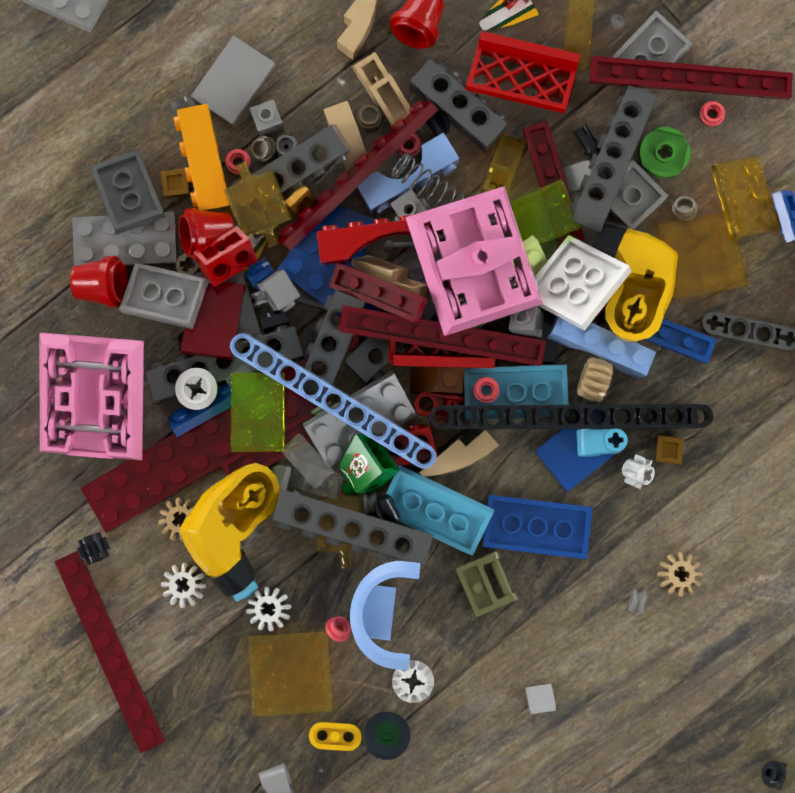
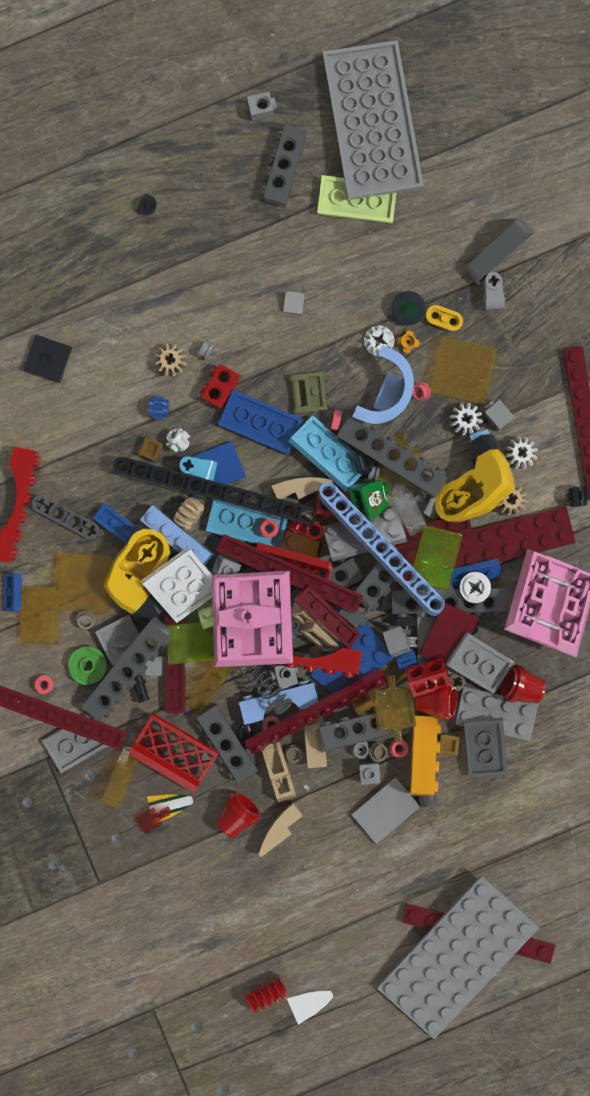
camera: 170 degrees left, 5 degrees up
(228, 627) = (498, 414): none -> light grey brick
(366, 691) = (413, 341): none -> light orange plate
(438, 557) = (336, 420): none -> coral tile
(598, 556) = (224, 388): none -> red brick
(676, 506) = (158, 407): none -> blue gear

